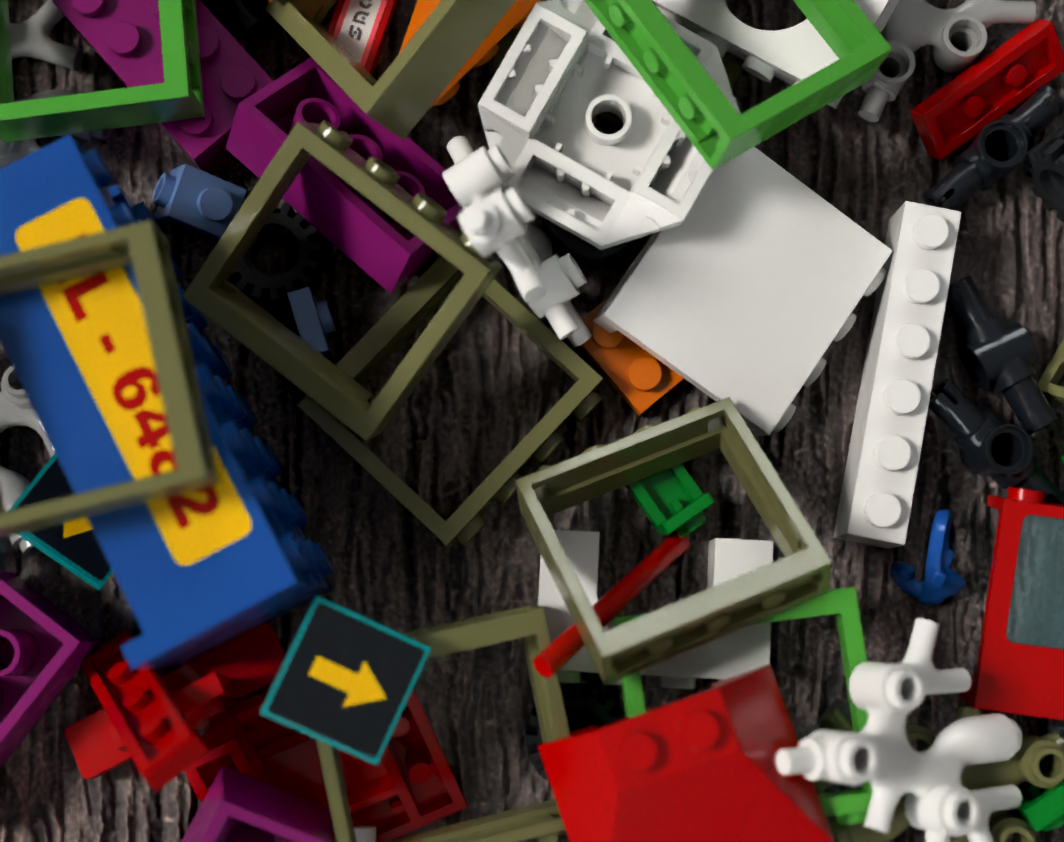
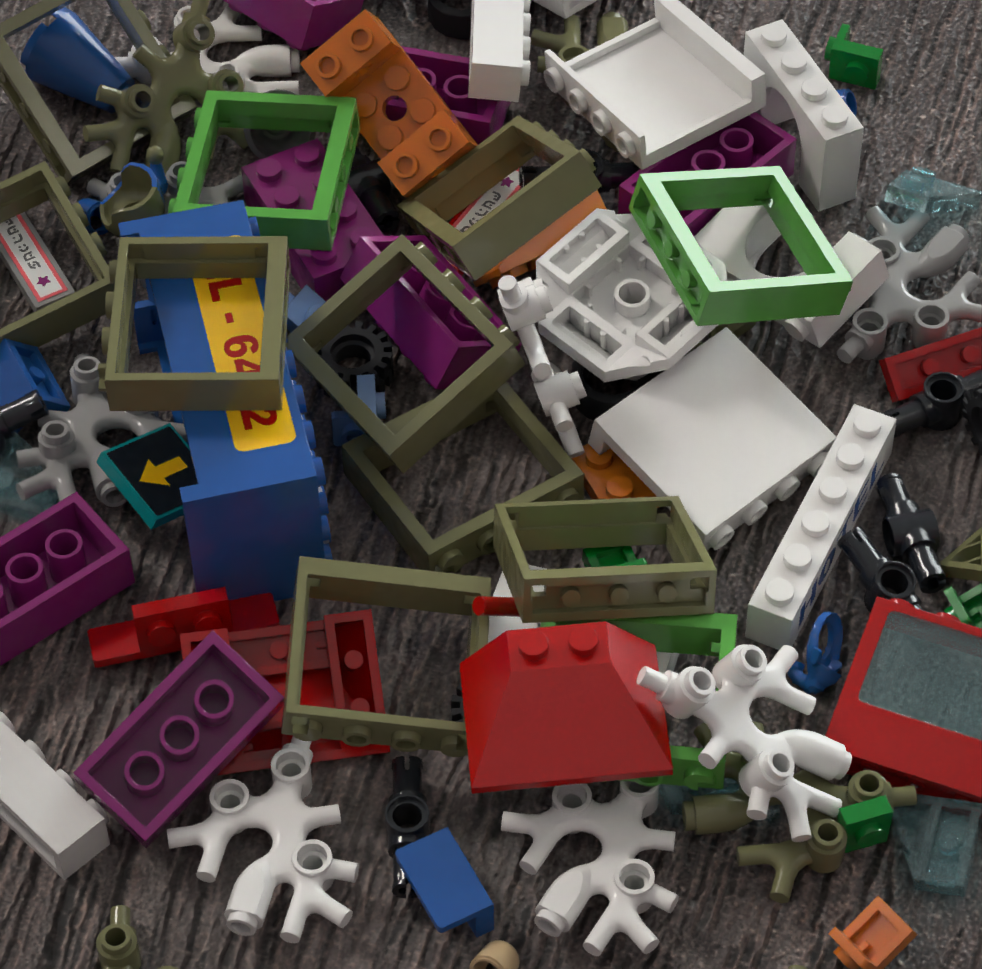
camera: 15 degrees right, 30 degrees down
(143, 714) = (165, 587): red tile -> none
(345, 680) = (329, 570): black tile -> none

